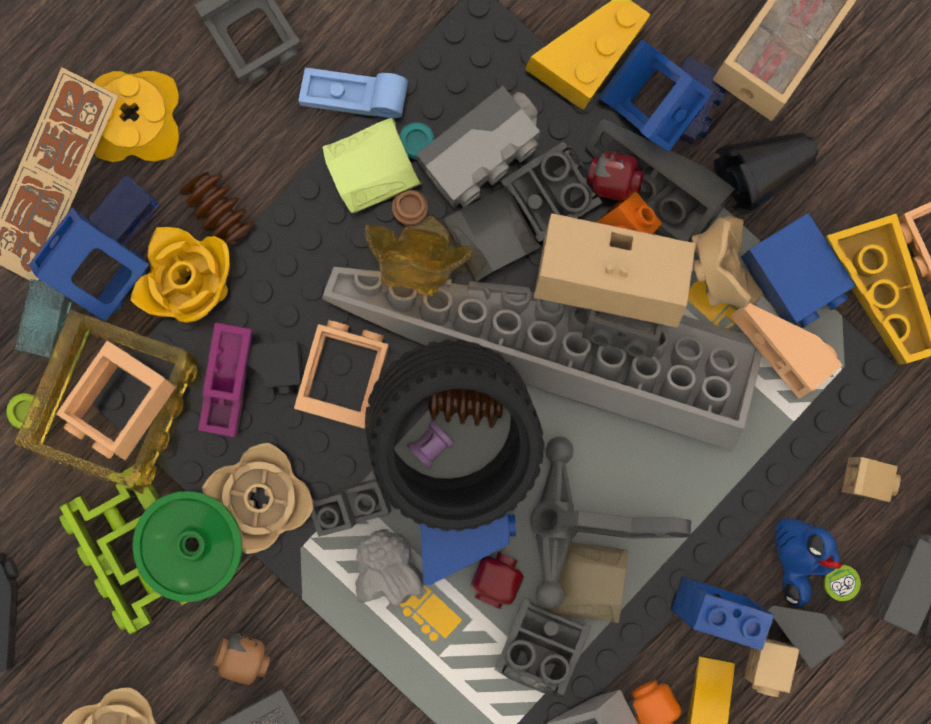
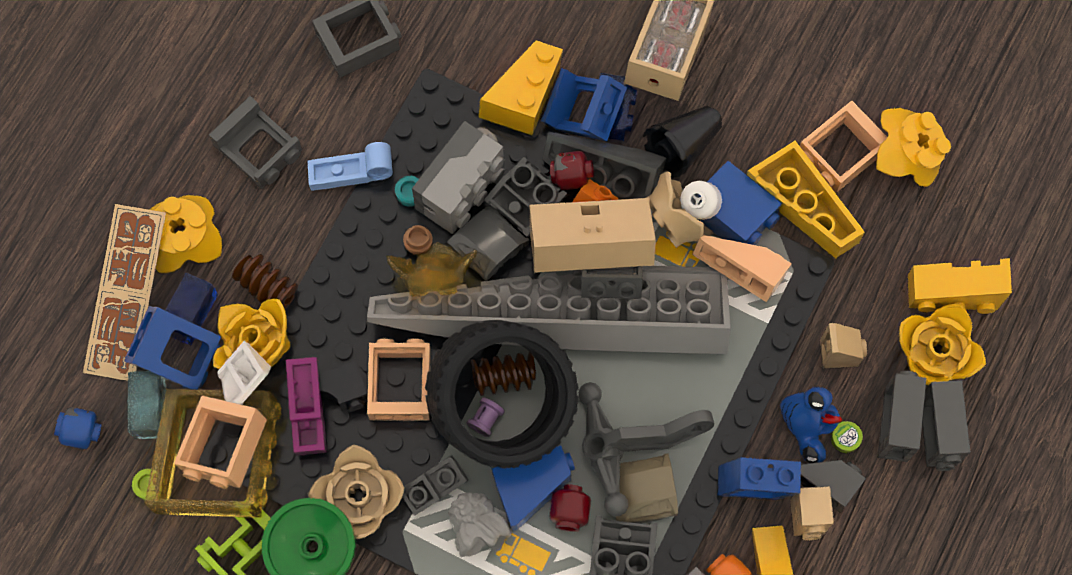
camera: 15 degrees left, 15 degrees down
(161, 326) = (242, 373): none -> white slope
(370, 166) = (379, 216): yellowish green slope -> none
(768, 258) = (710, 198): none -> white head

